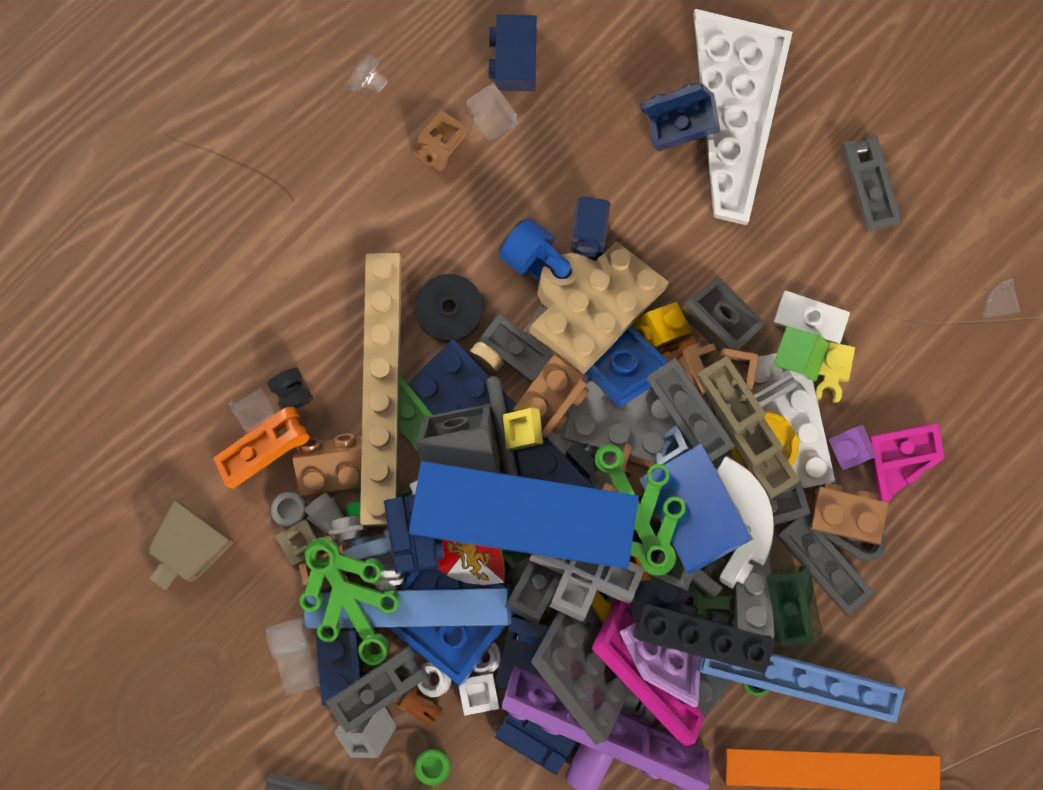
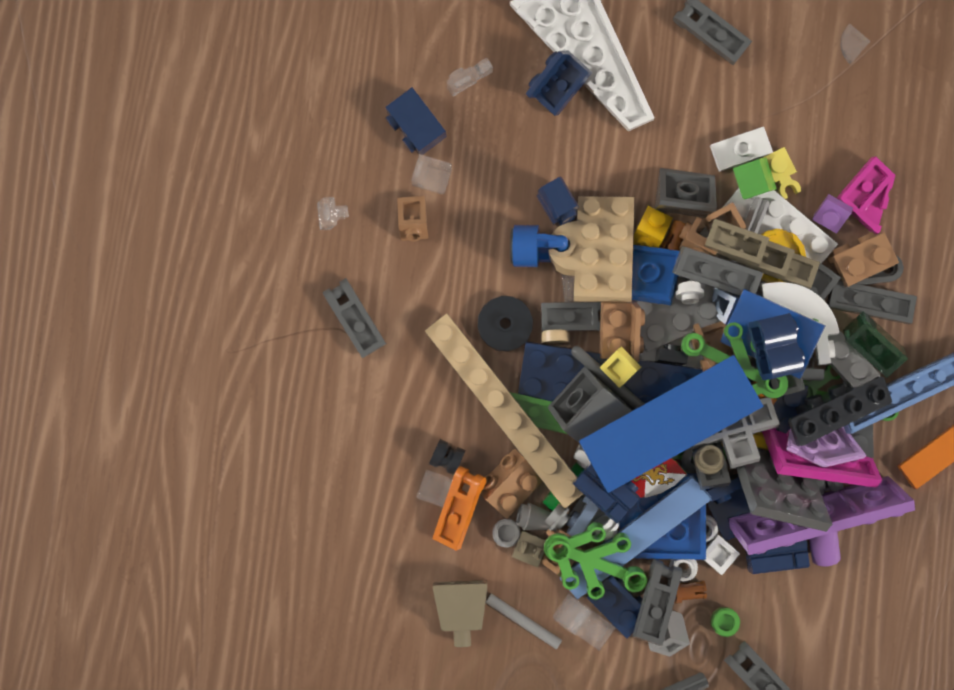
camera: 30 degrees left, 5 degrees up
(236, 608) = (523, 621): none -> light grey bar
(309, 192) = (355, 319): none -> dark grey plate
(535, 581) = (709, 459): none -> dark tan plate
(595, 48) = (463, 79): none -> clear plate
(647, 409) = (689, 292): none -> white plate
(686, 519) = (776, 346): none -> dark blue brick

